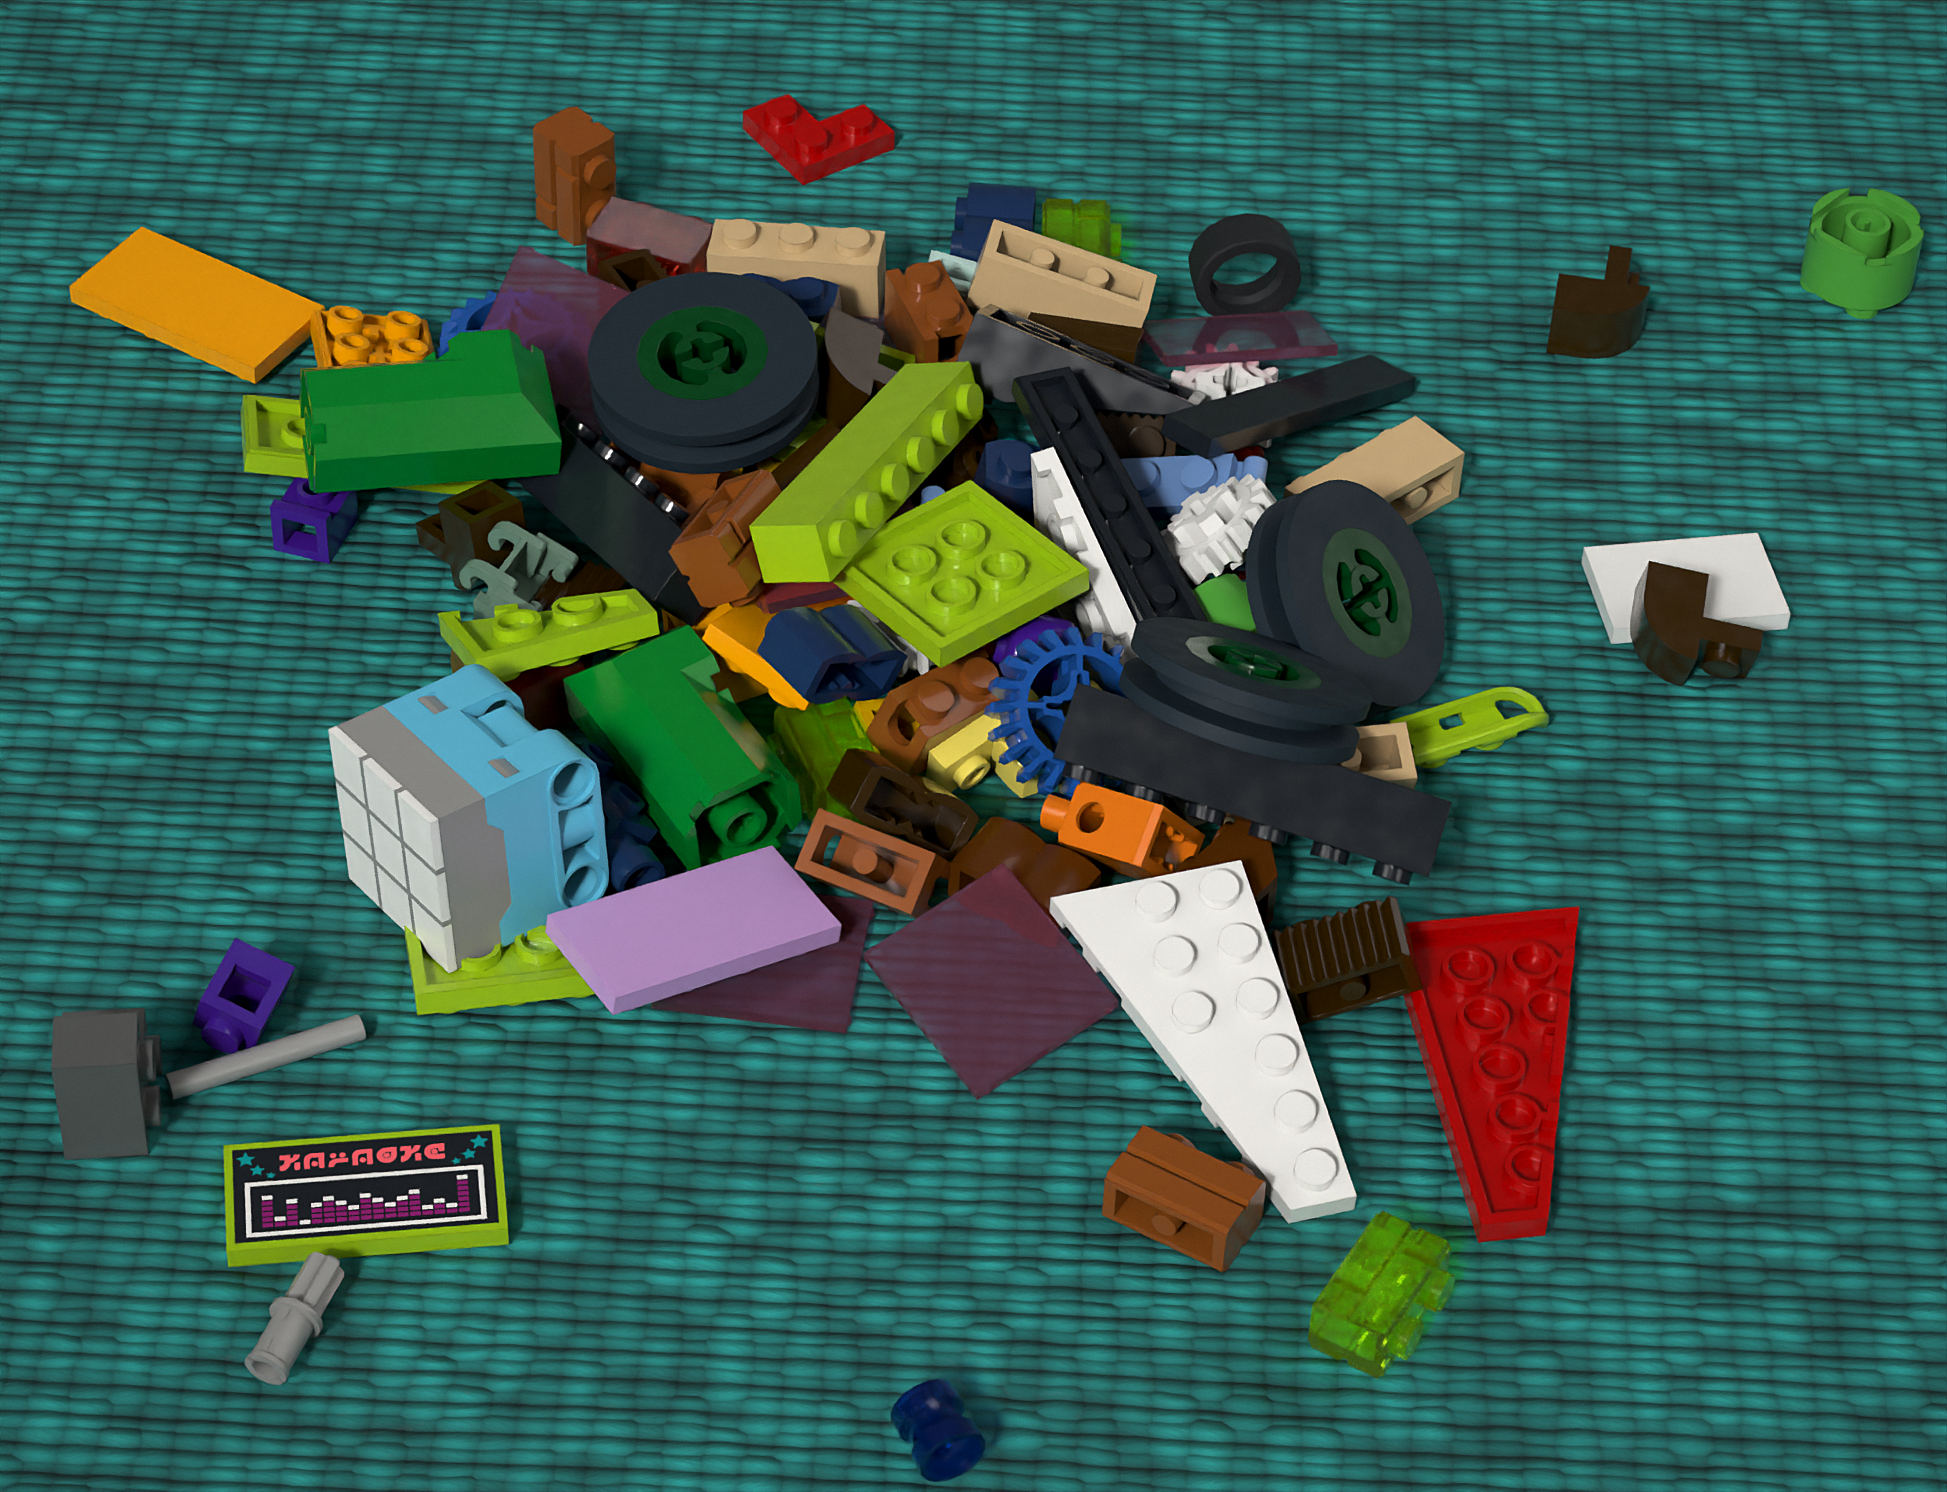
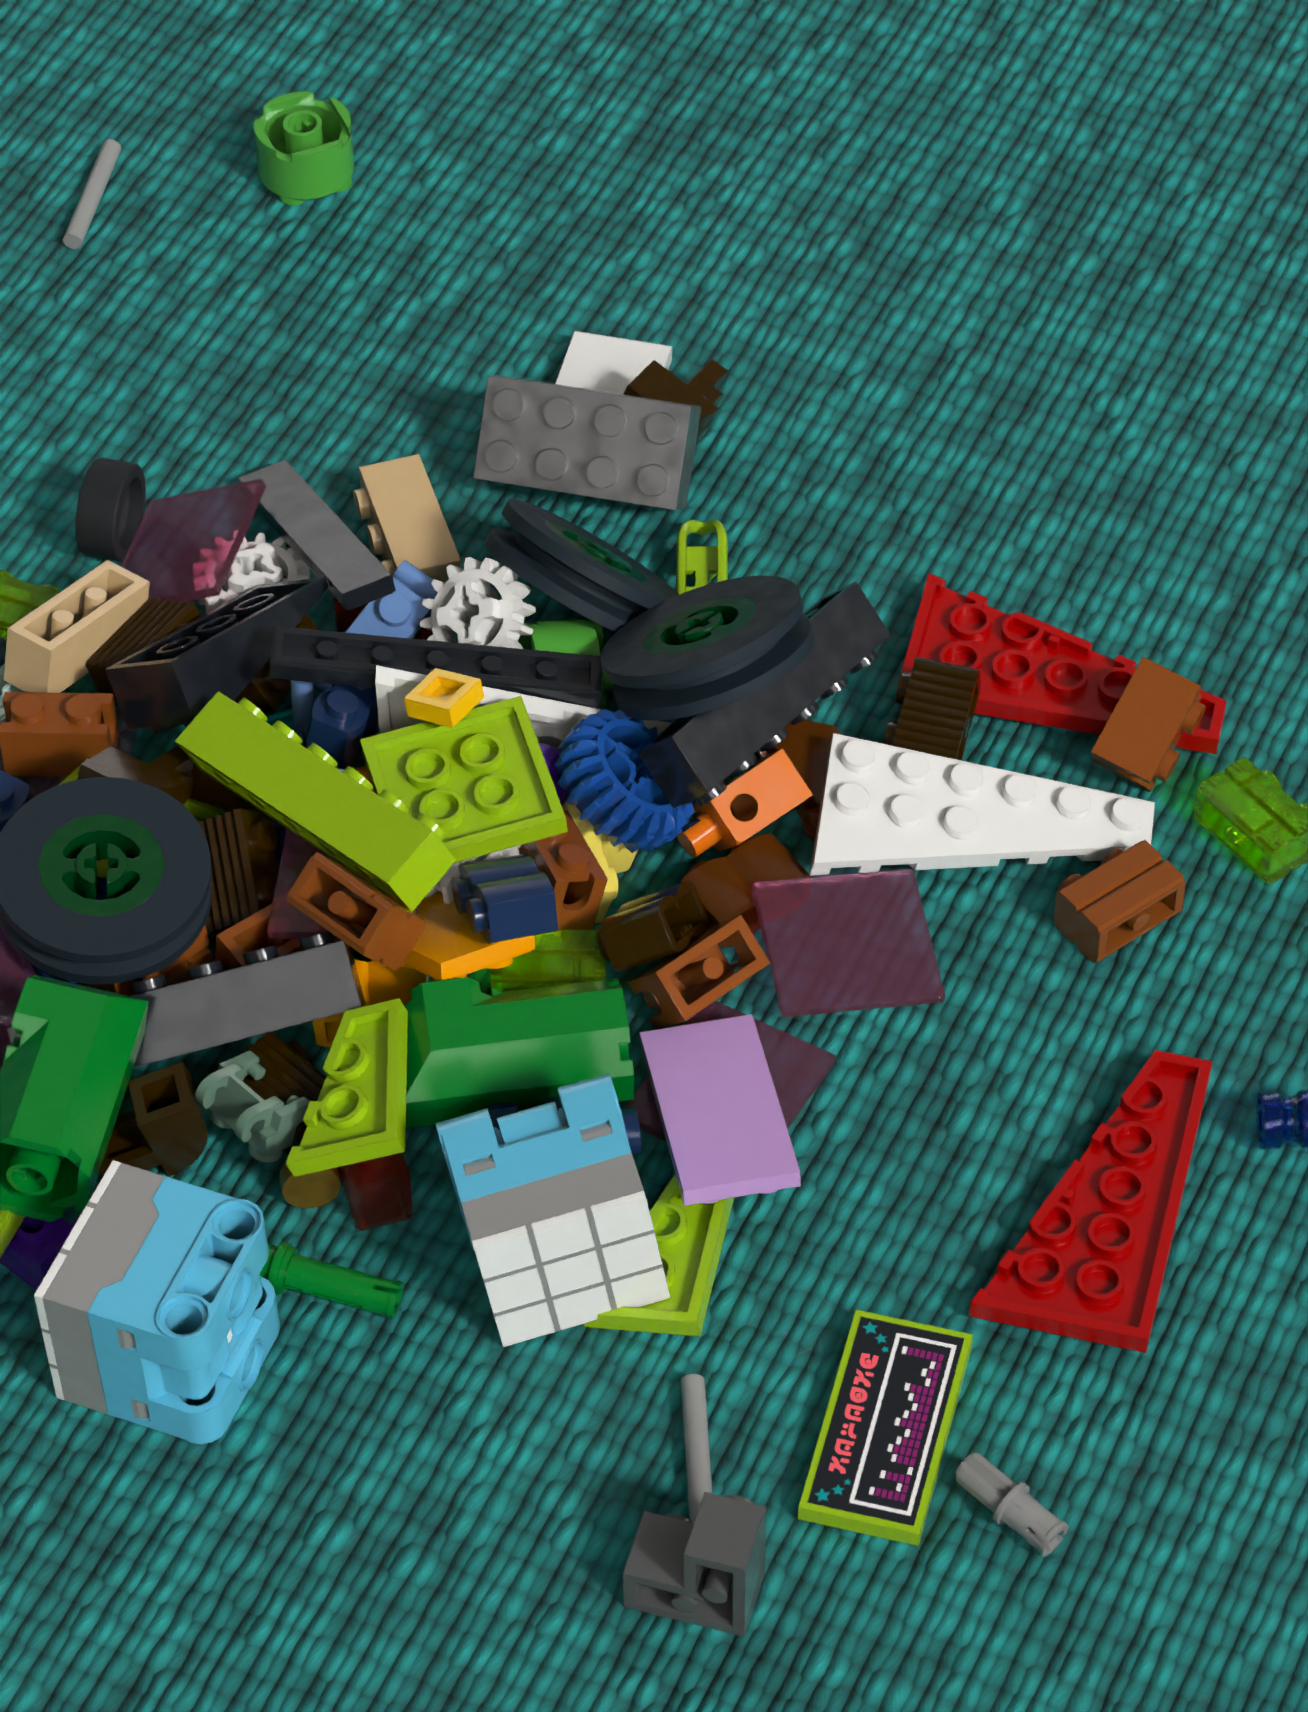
camera: 65 degrees left, 5 degrees up
(235, 584) = (160, 1304): none -> medium azure piece
(242, 997) = (642, 1447): dark purple brick -> none
(358, 675) = (330, 1282): none -> green pin
(719, 1307) = (1108, 1226): none -> red wing
(1037, 507) = (444, 697): none -> yellow plate
(1444, 1139) = (1148, 725): none -> dark orange brick
(1563, 568) = (587, 442): none -> flat silver brick
(1599, 315) = (268, 320): dark brown brick -> none
(1701, 143) = (92, 194): none -> light grey bar

